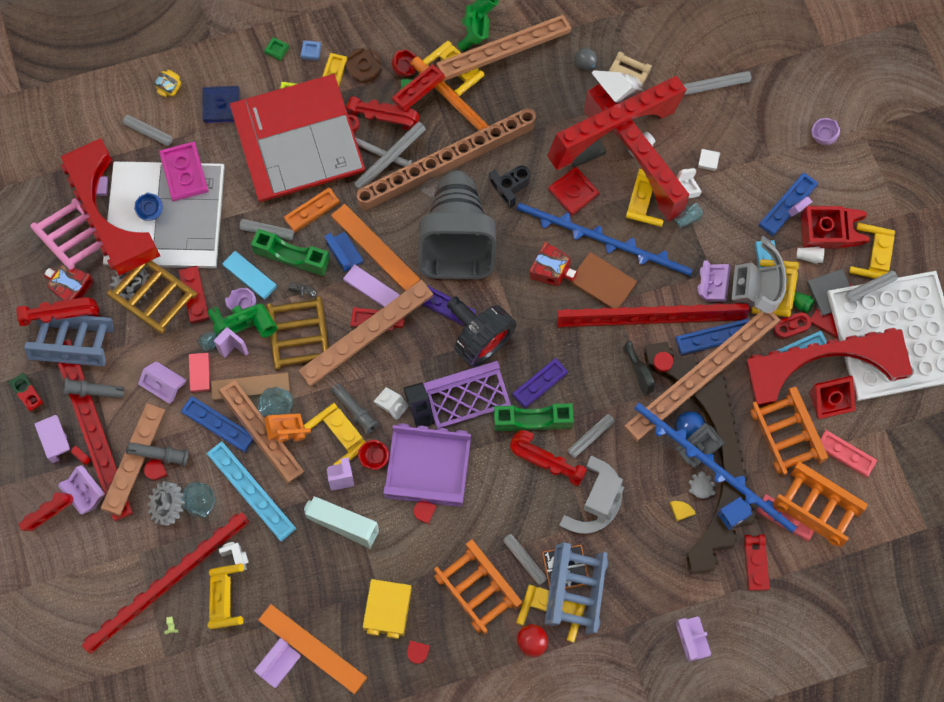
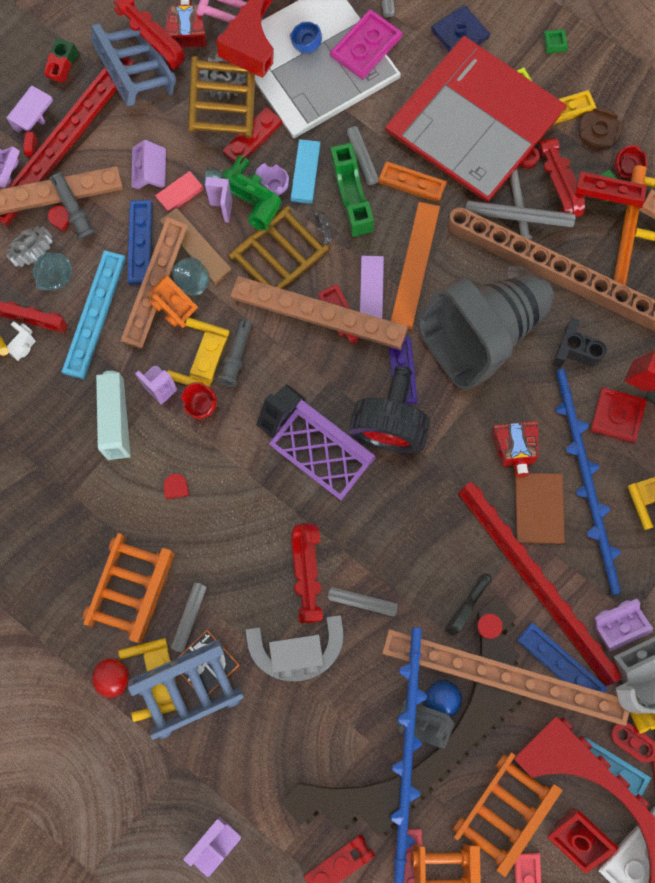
camera: 60 degrees right, 5 degrees up
(83, 388) = (91, 102): dark grey pin -> none
(311, 50) = (577, 72): medium blue tile -> none
(343, 250) = (390, 237): blue panel -> none
(387, 608) = (53, 514): yellow brick -> none
(391, 402) = (264, 383): white bracket -> none
(417, 652) = (30, 571): red tile -> none
(427, 465) = (224, 460): medium lavender panel -> none
(540, 383) = (384, 514): dark purple tile -> none
(551, 417) = (338, 529): green arch -> none
(681, 510) = (344, 748): yellow tile -> none
(701, 485) = (385, 753): light grey piece -> none
(735, 513) = (371, 811): blue brick -> none

